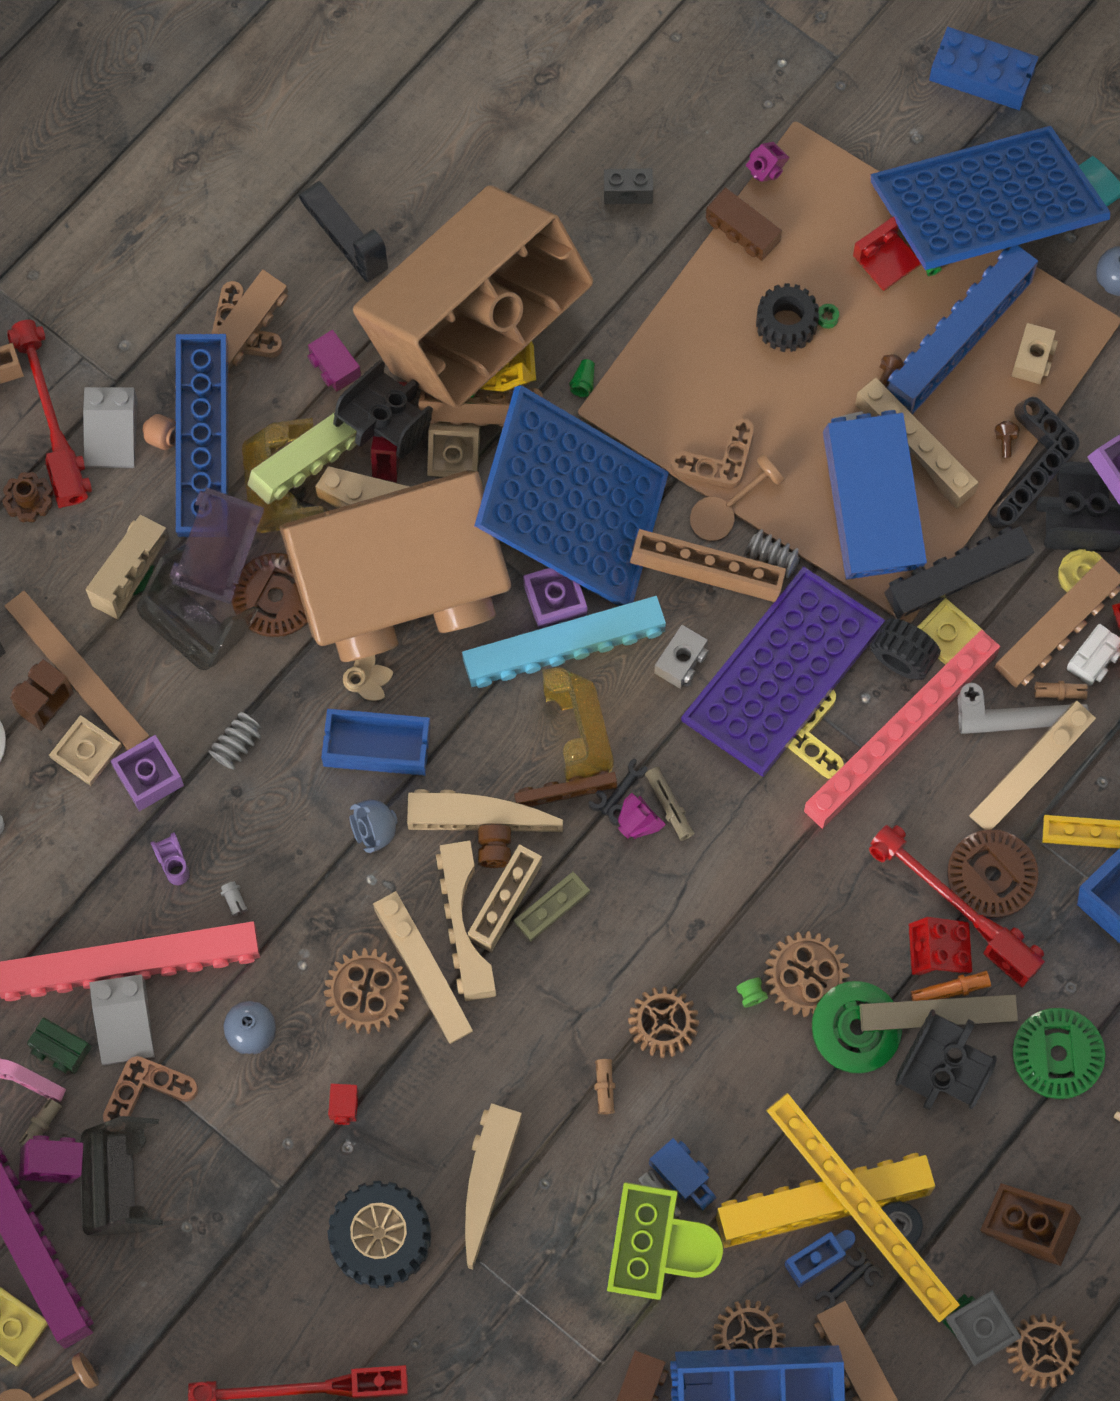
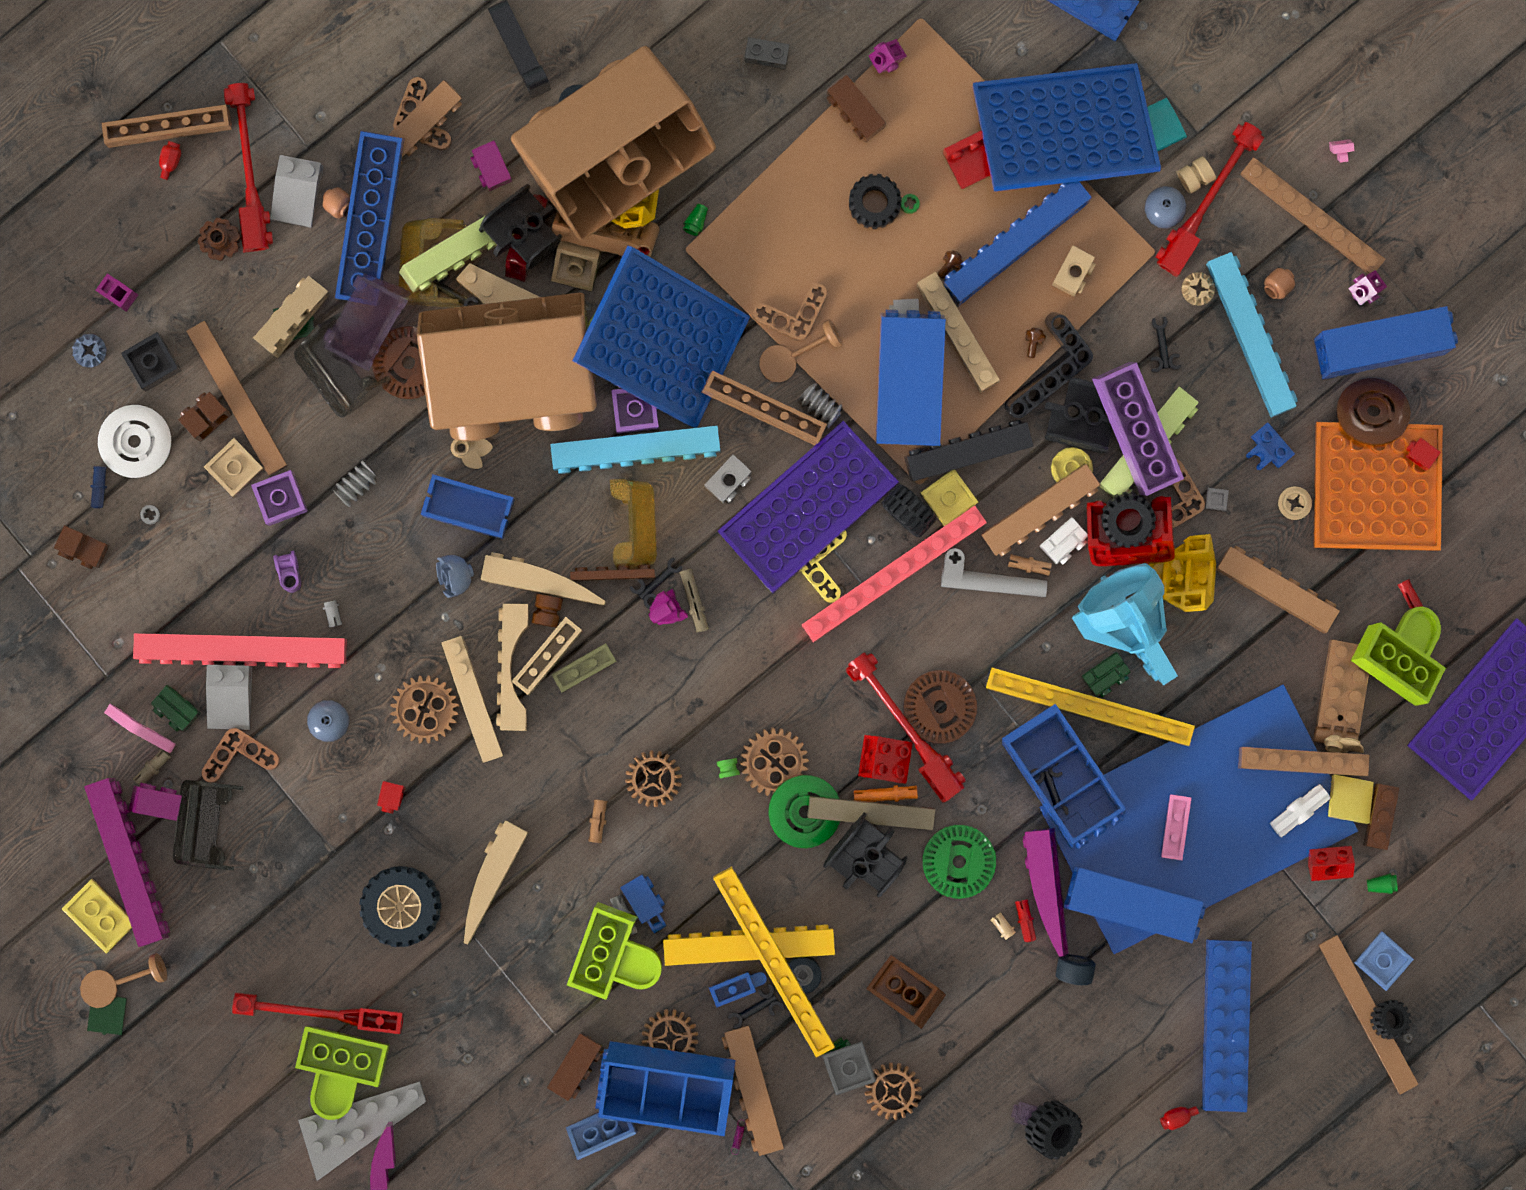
camera: 10 degrees right, 15 degrees up
(1032, 766) = (991, 626): tan slope -> none

